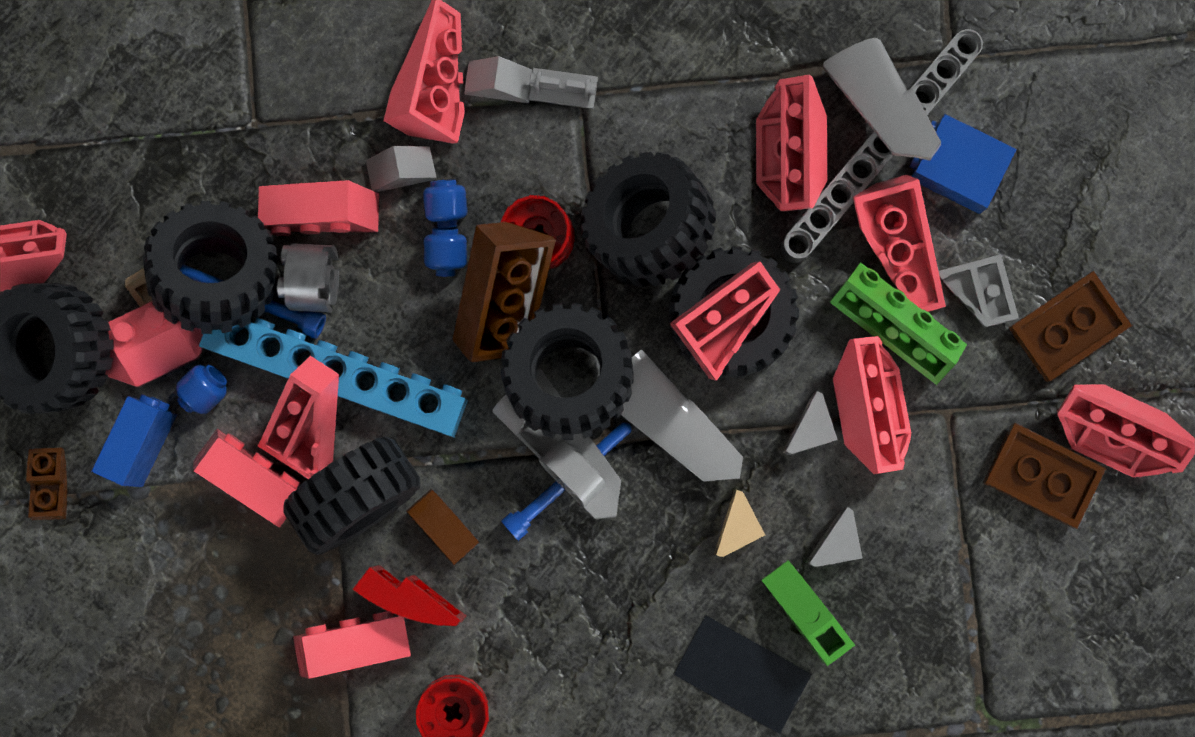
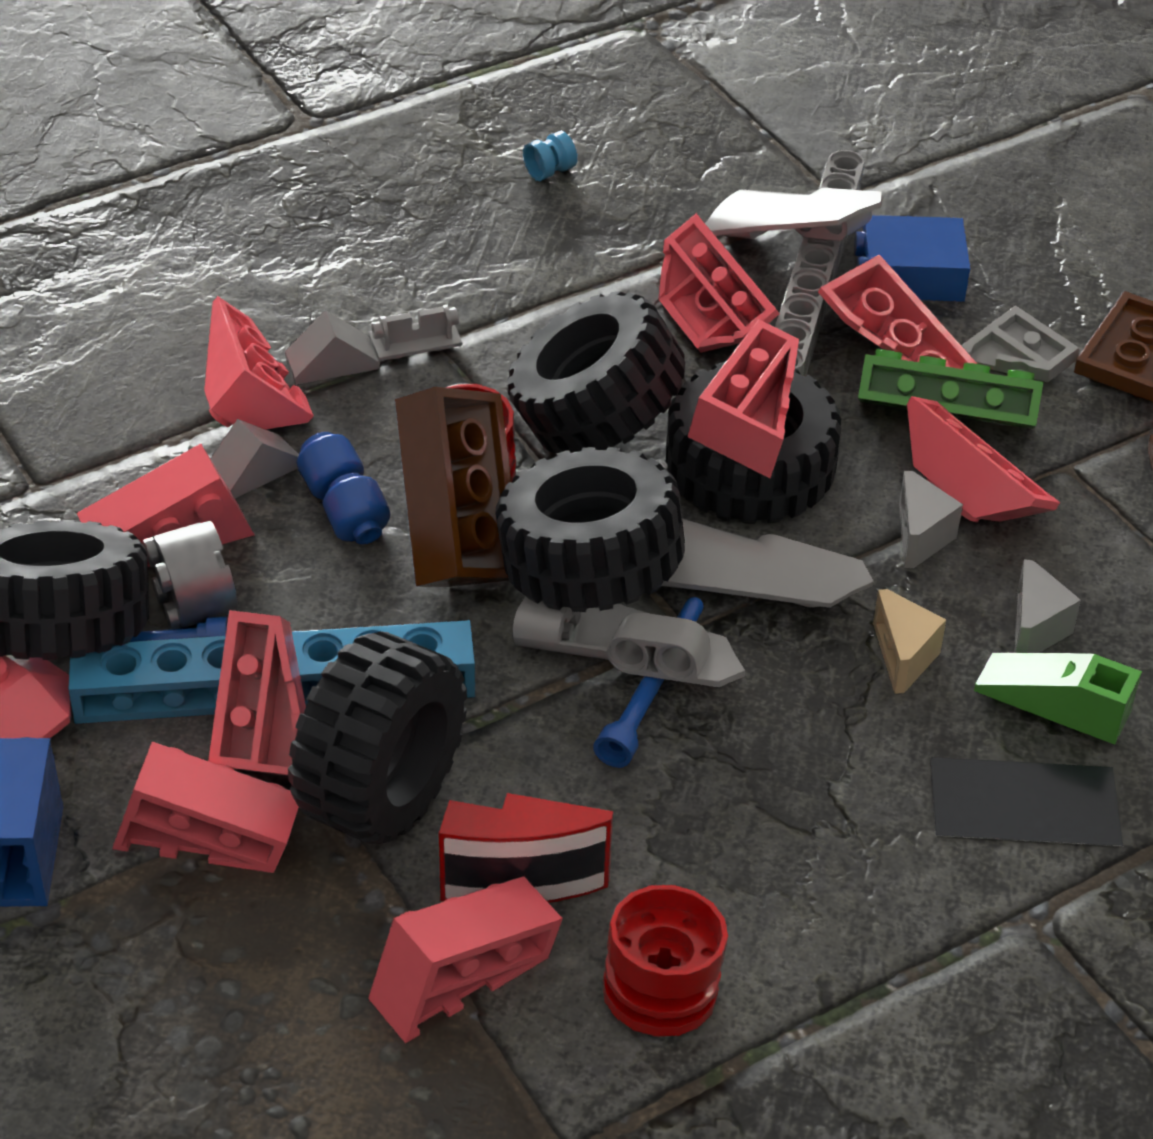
camera: 30 degrees left, 40 degrees down
(201, 389) = (91, 748): blue head -> none
(442, 526) = (504, 769): reddish brown slope -> none

